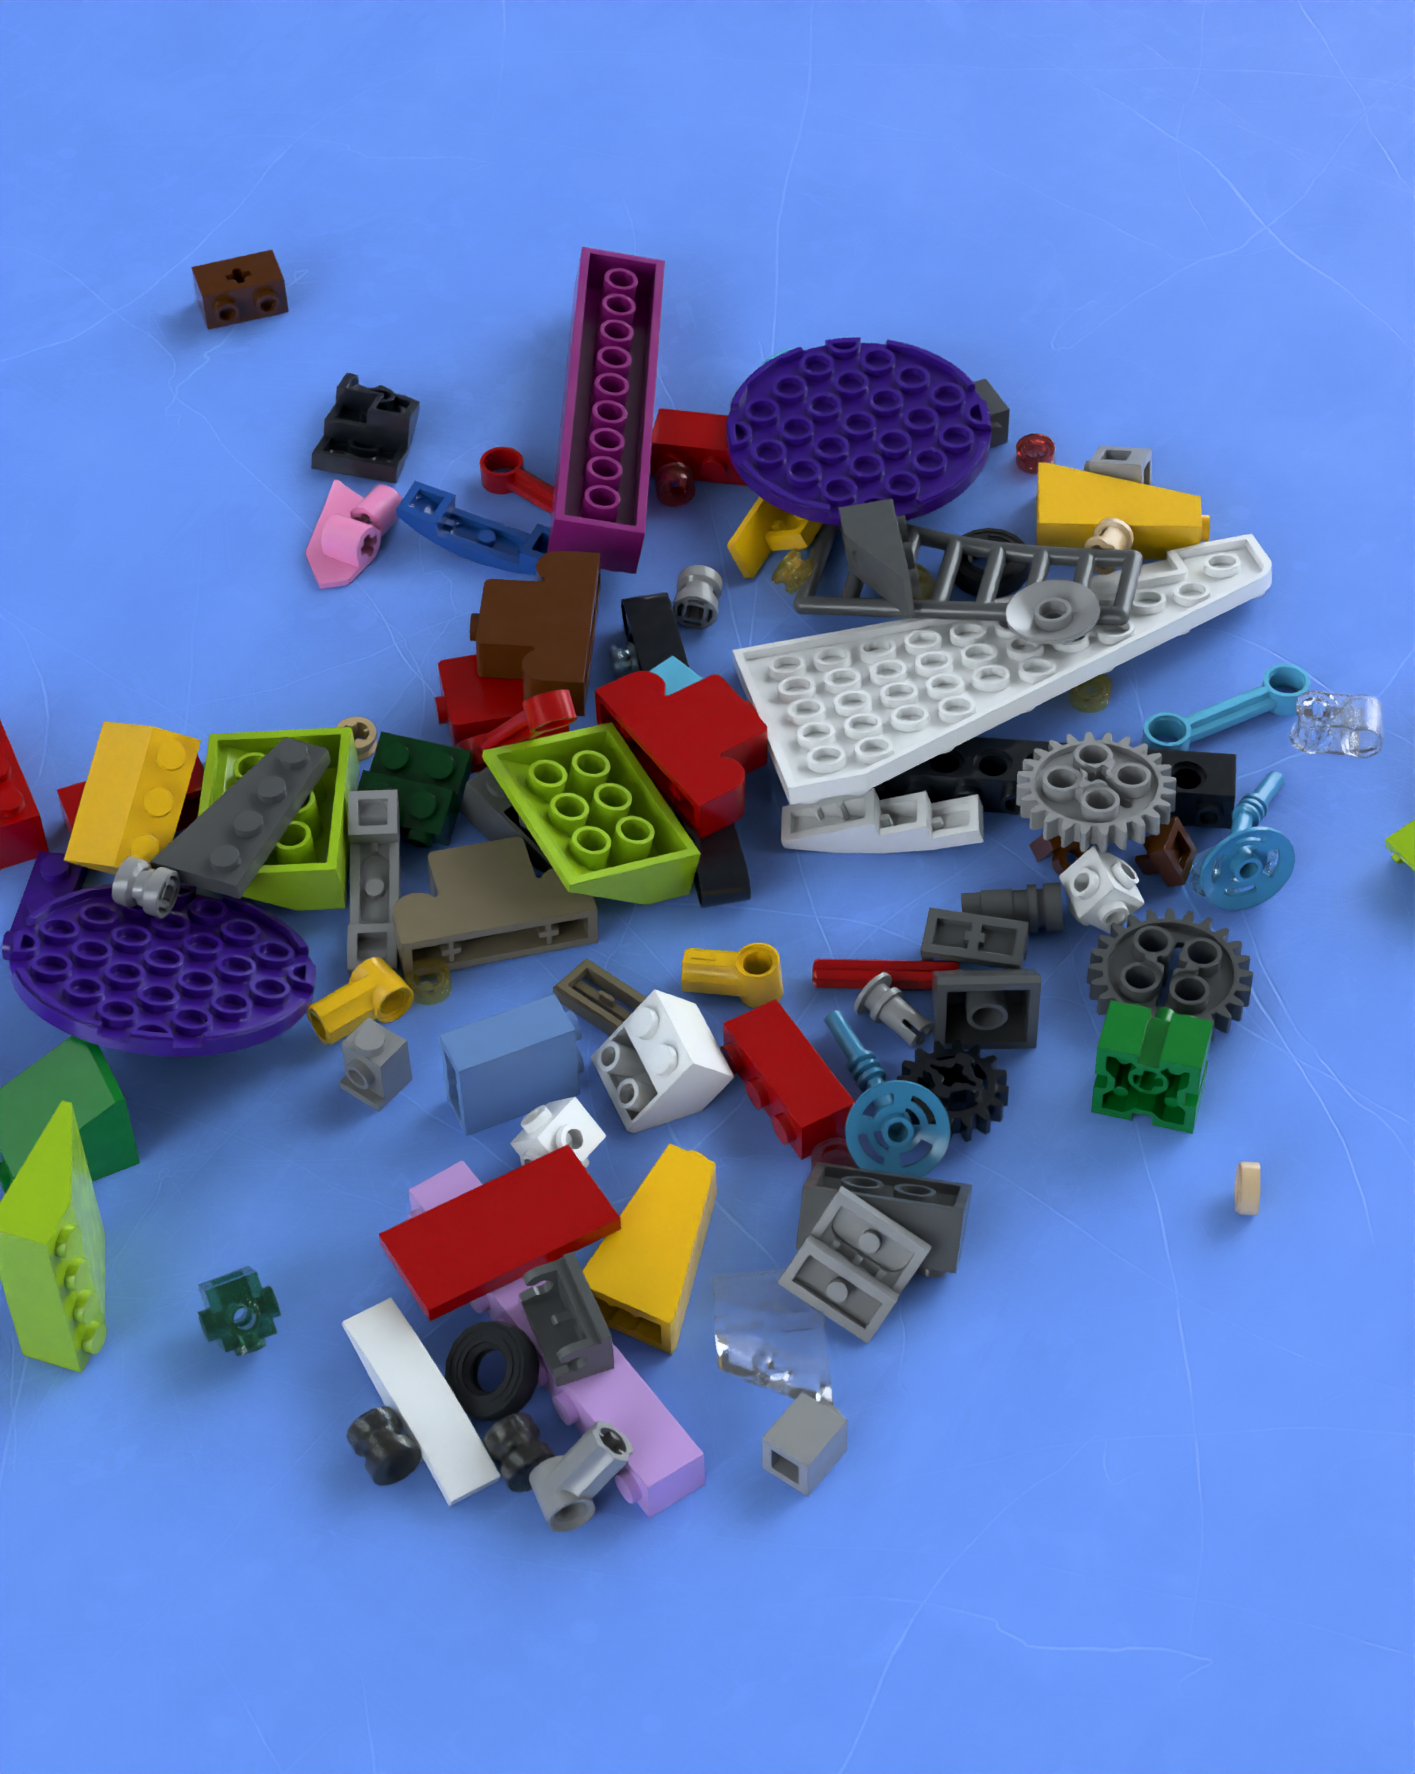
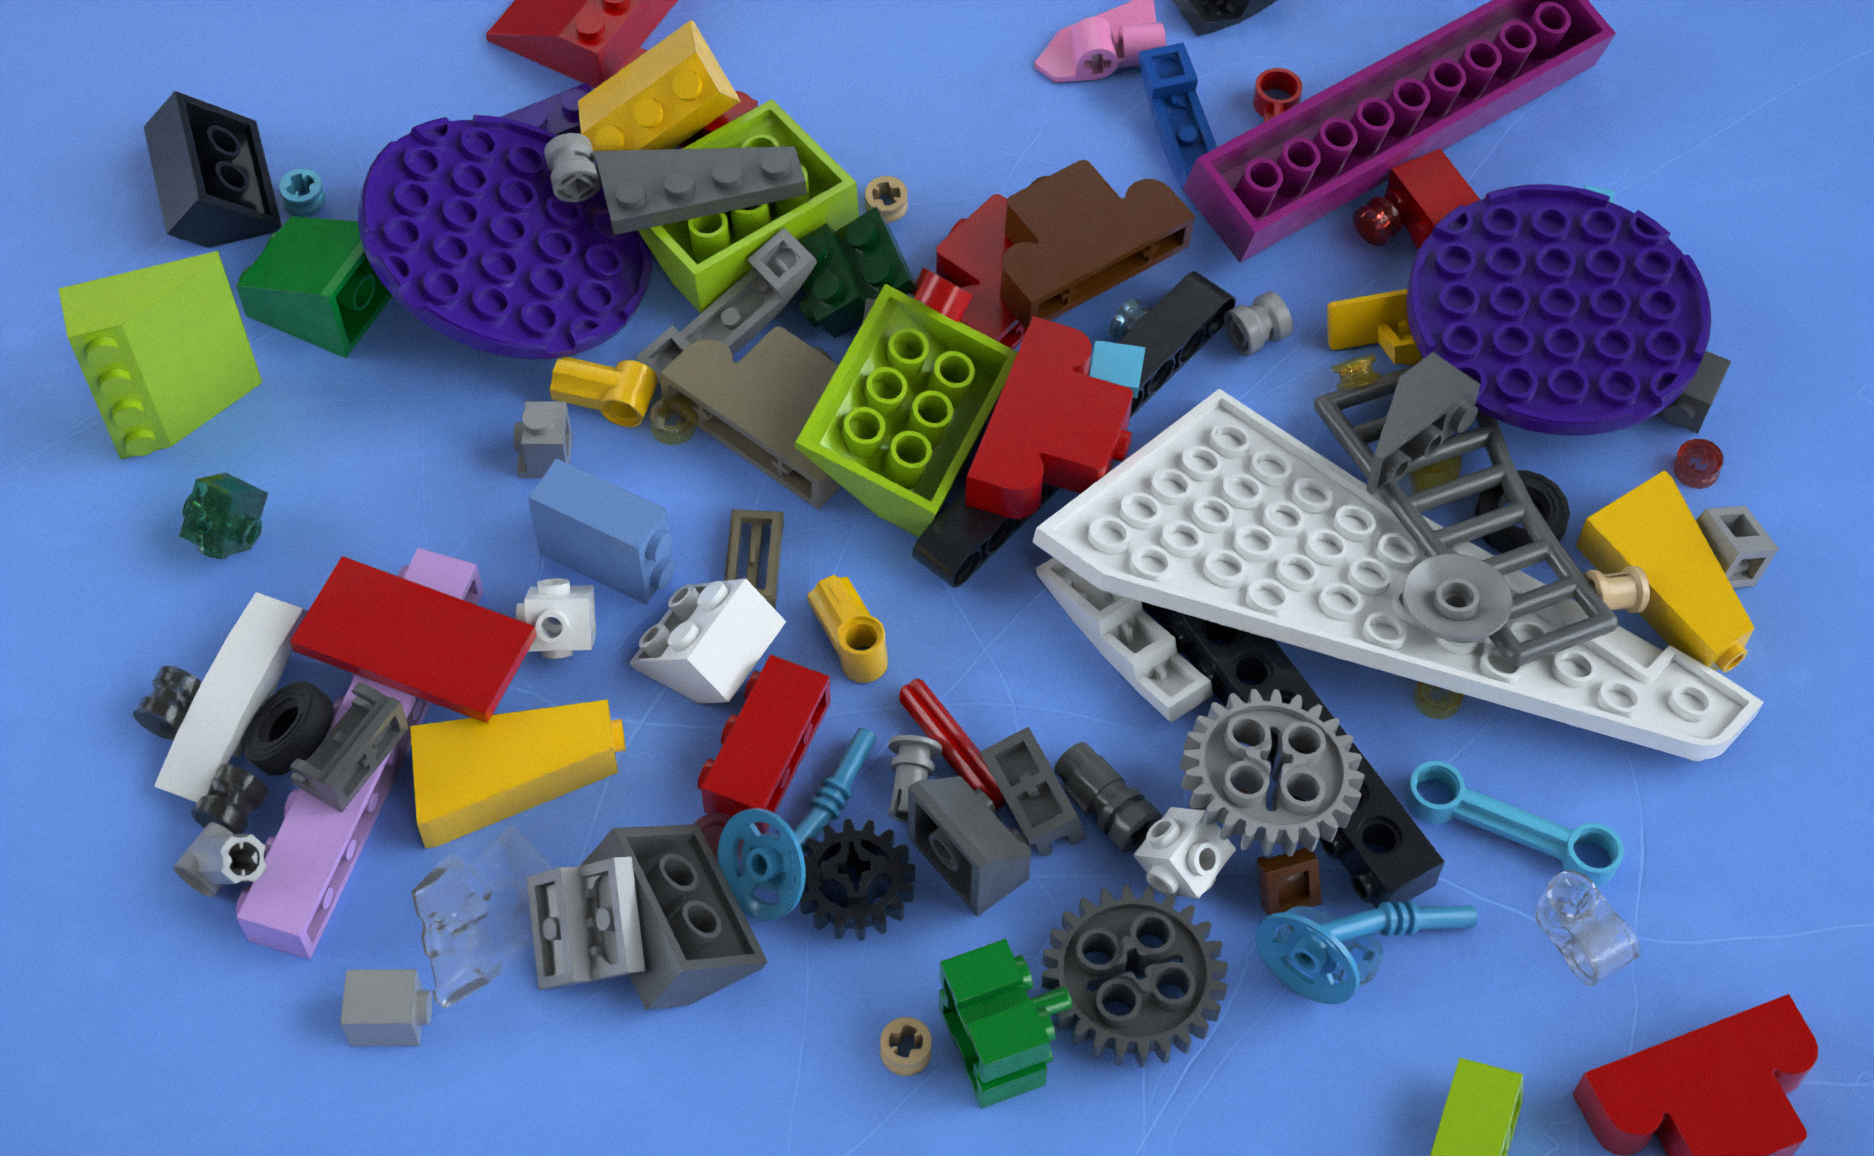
camera: 50 degrees right, 10 degrees up
(1111, 1157) = (893, 1034): none -> tan bush

